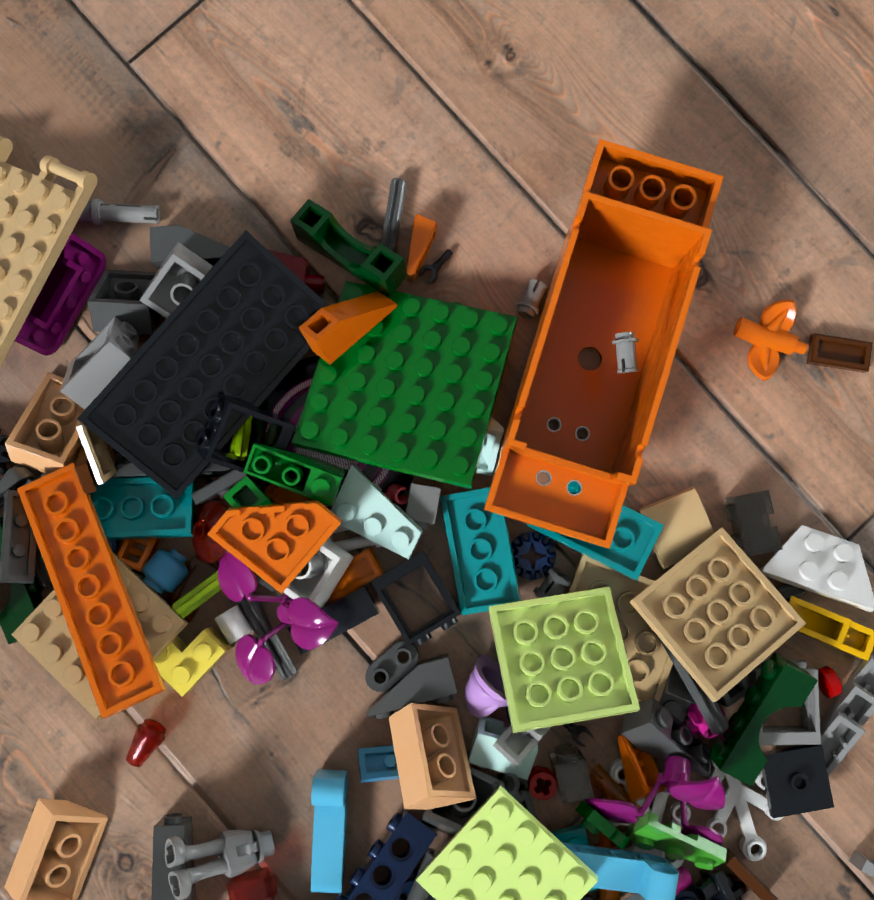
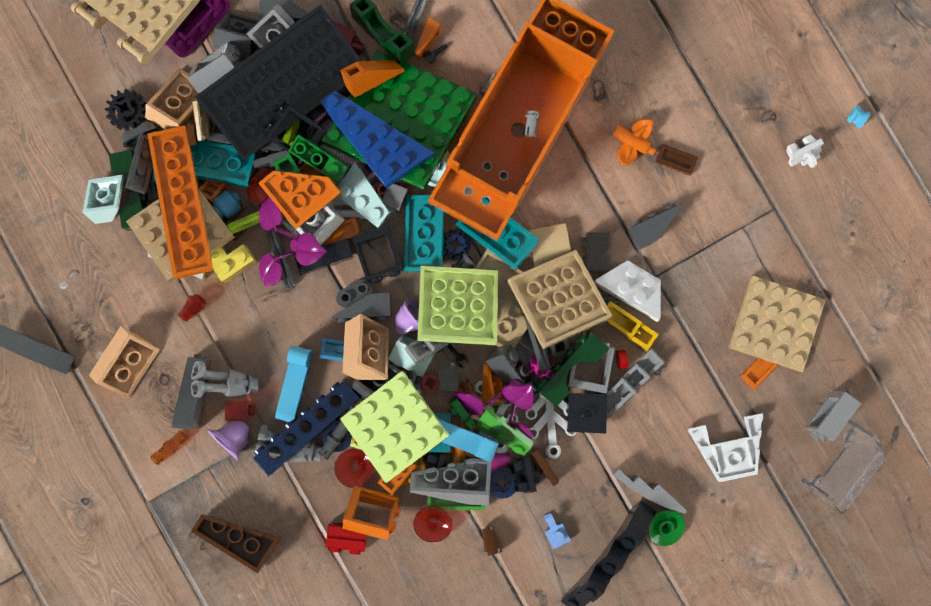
camera: 10 degrees right, 0 degrees up
(233, 624) = (261, 246): white gear -> none
(388, 433) = (381, 146): none -> blue wing
(831, 468) = (649, 231): none -> dark grey slope

